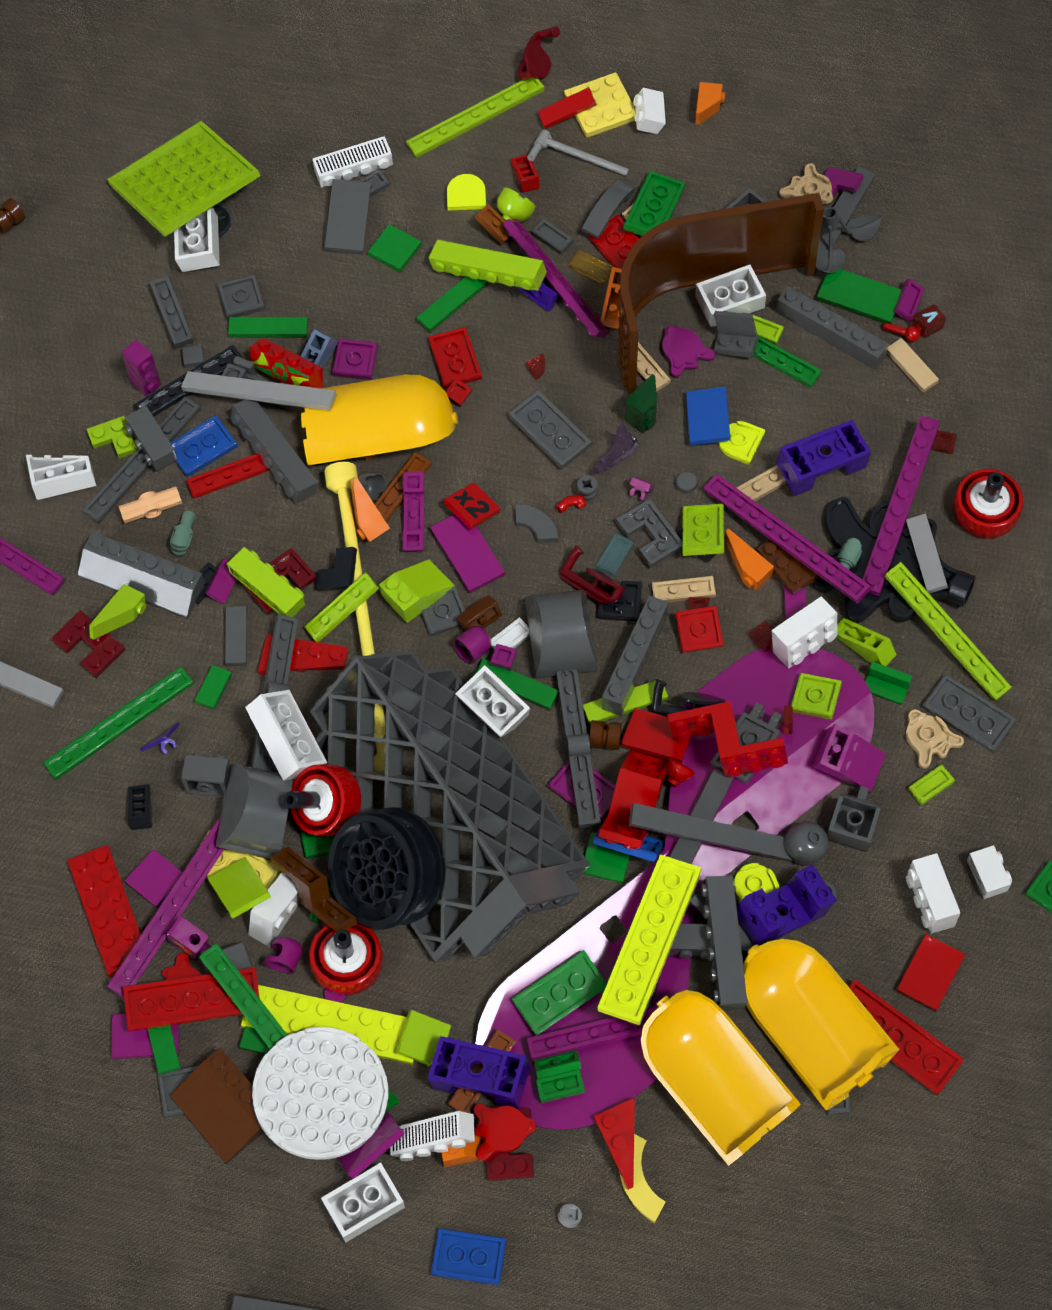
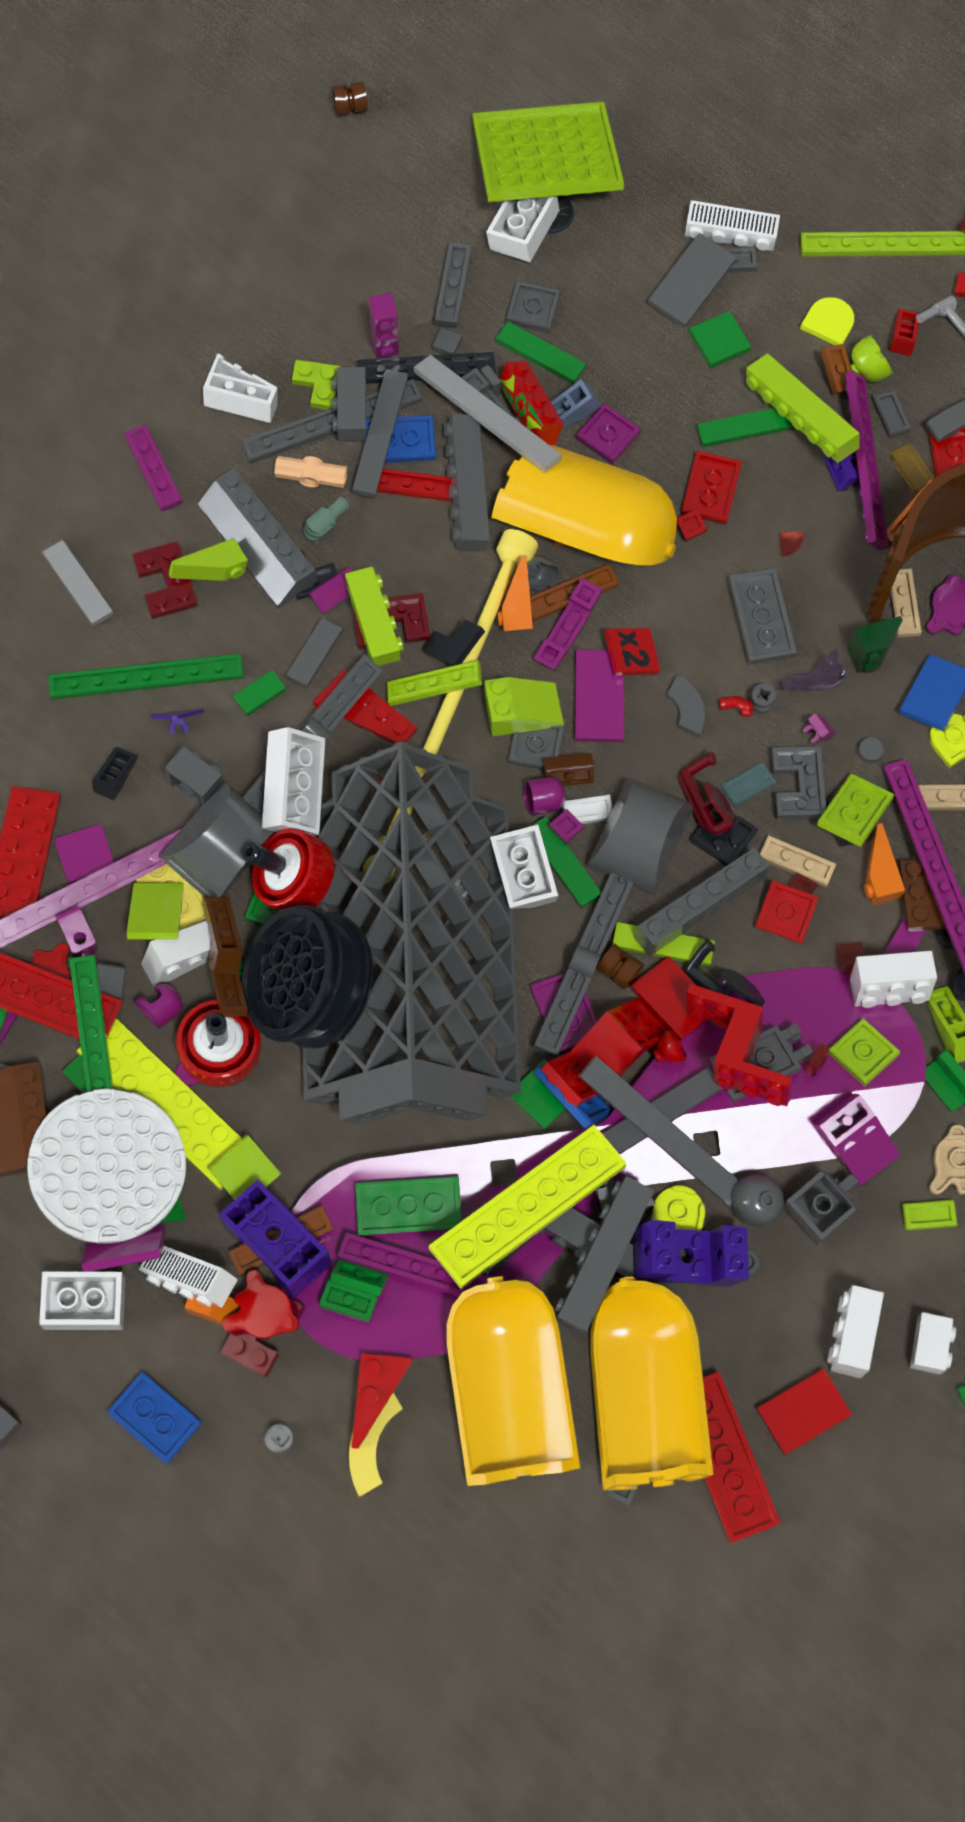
camera: 25 degrees right, 5 degrees up
(185, 448) = (380, 433): none -> dark grey tile

